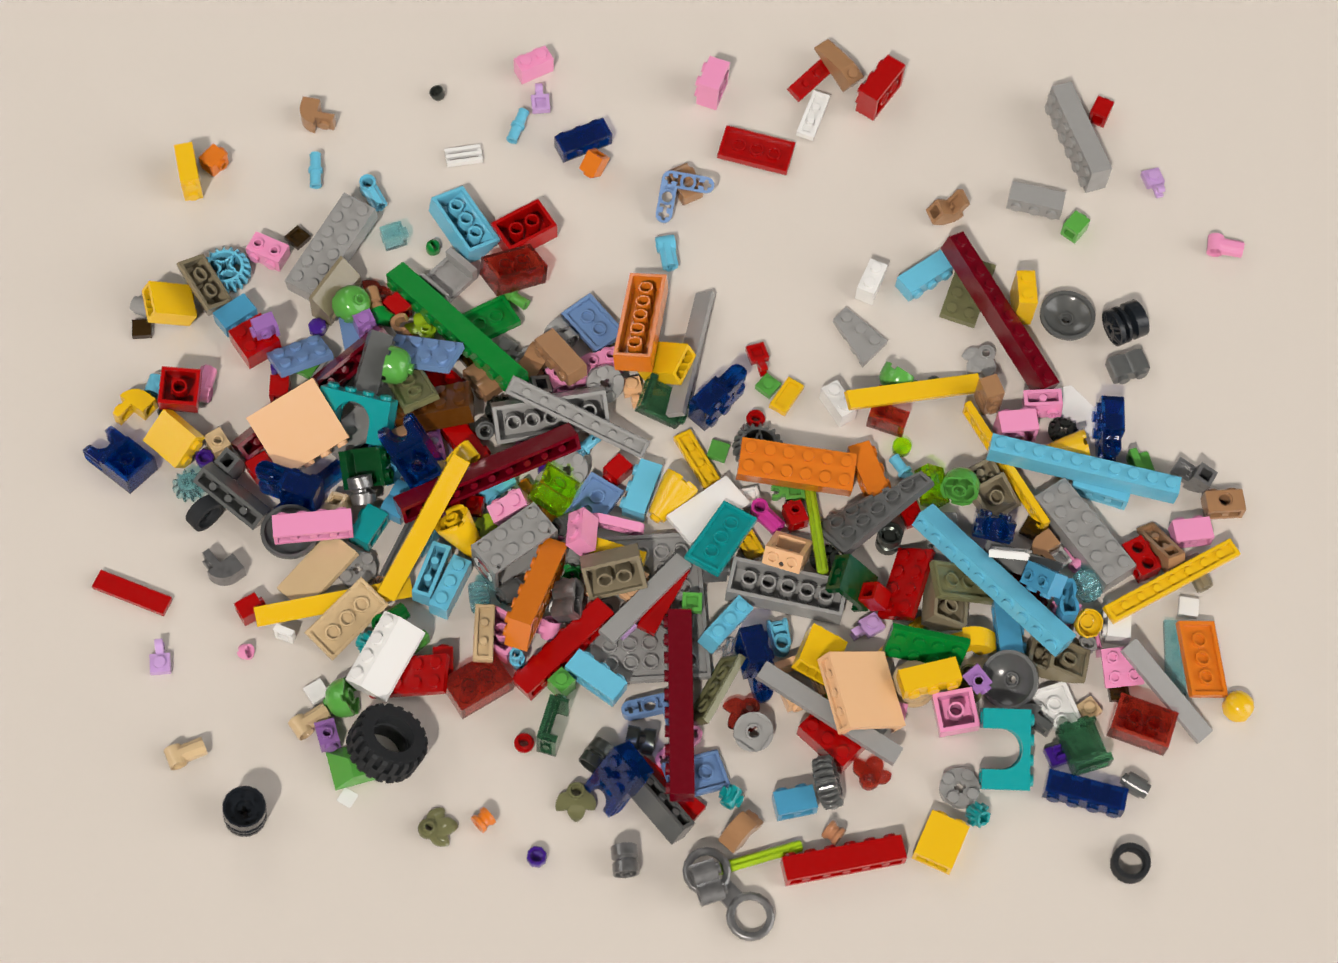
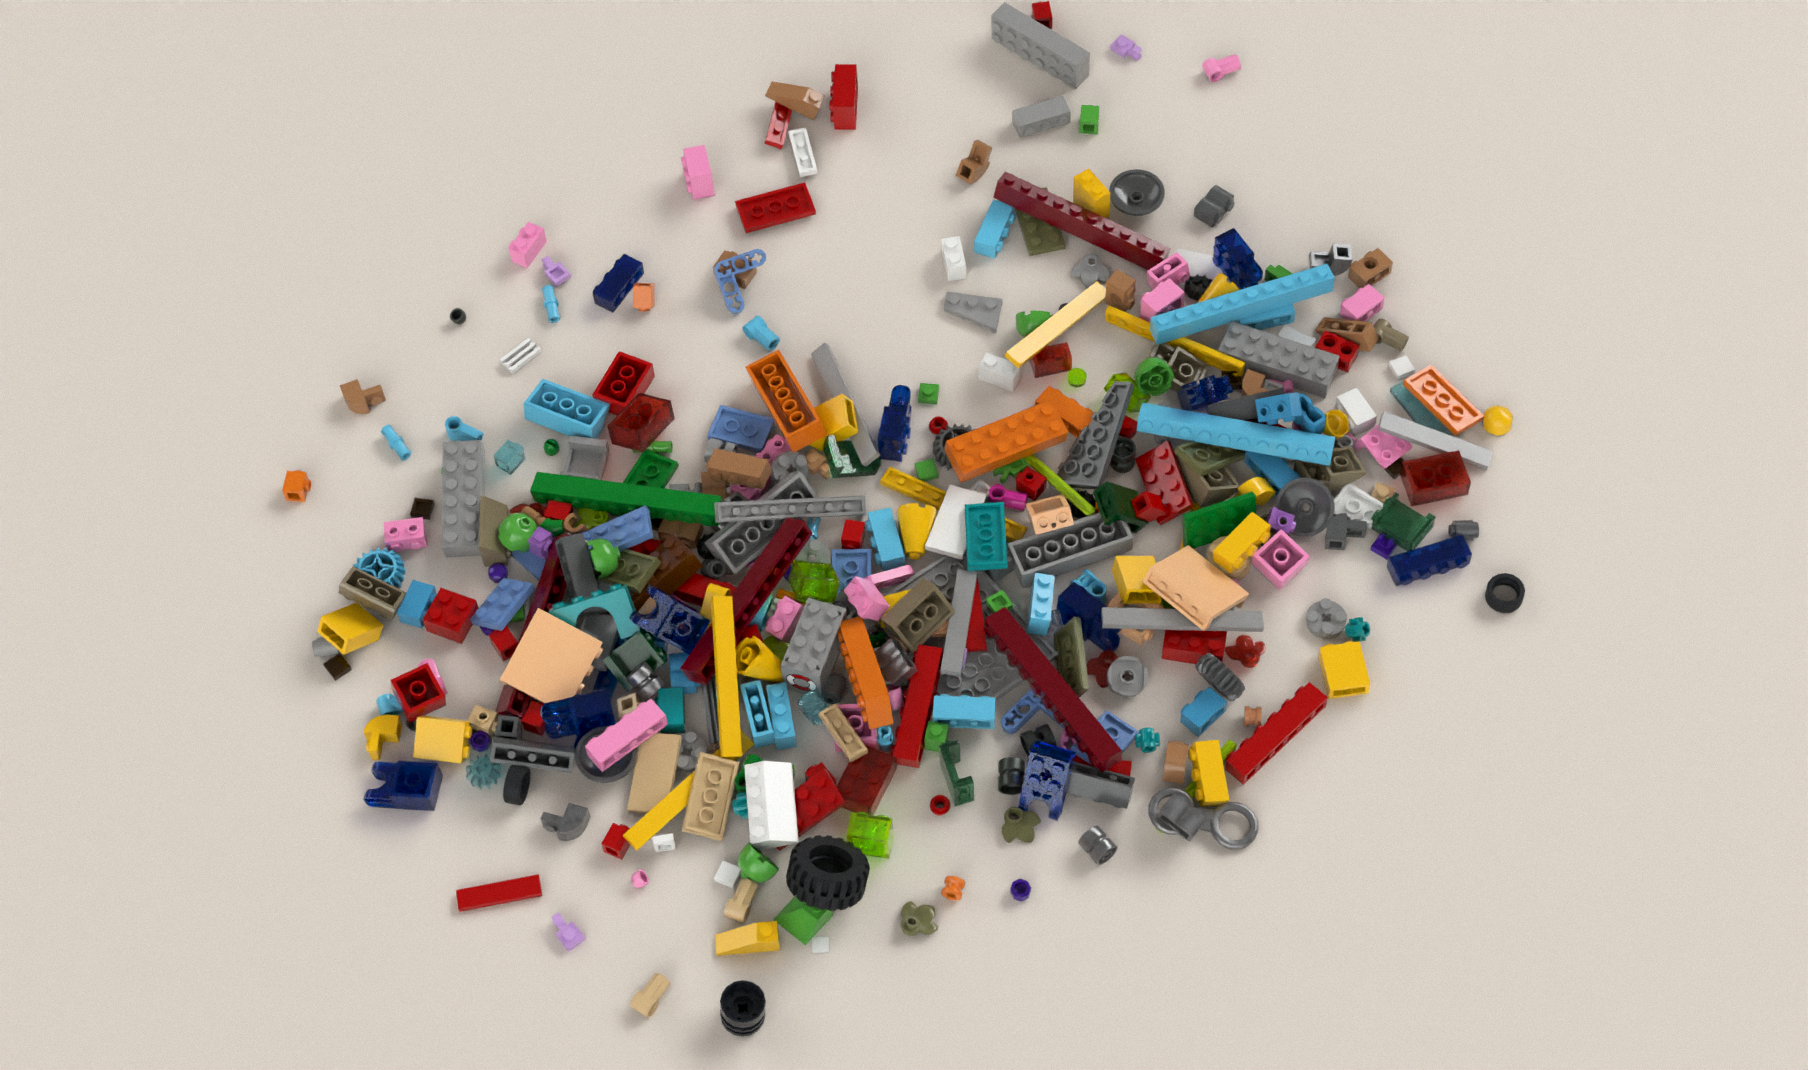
camera: 25 degrees left, 5 degrees down
(188, 171) = (282, 507): yellow brick -> none
(264, 326) = (457, 594): medium lavender brick -> none
(293, 757) = (749, 939): none -> yellow slope
(327, 735) = (760, 903): medium lavender brick -> none
(447, 732) = (871, 834): none -> clear neon green brick
(758, 355) = (904, 373): red plate -> none
(758, 858) = (1208, 773): none -> yellow brick
(786, 396) = (950, 393): yellow tile -> none
(869, 626) = (1157, 536): lavender plate -> none
(903, 470) = (1094, 395): medium azure pin -> none
(1009, 553) = (1234, 404): white tile -> none
(1019, 724) = (1341, 535): teal arch -> none
(1087, 585) = (1314, 392): clear light blue gear -> none
(1115, 525) = (1291, 334): none -> white sticker
(1125, 322) = (1188, 171): black wheel -> none
(1171, 581) = (1375, 352): yellow tile -> none

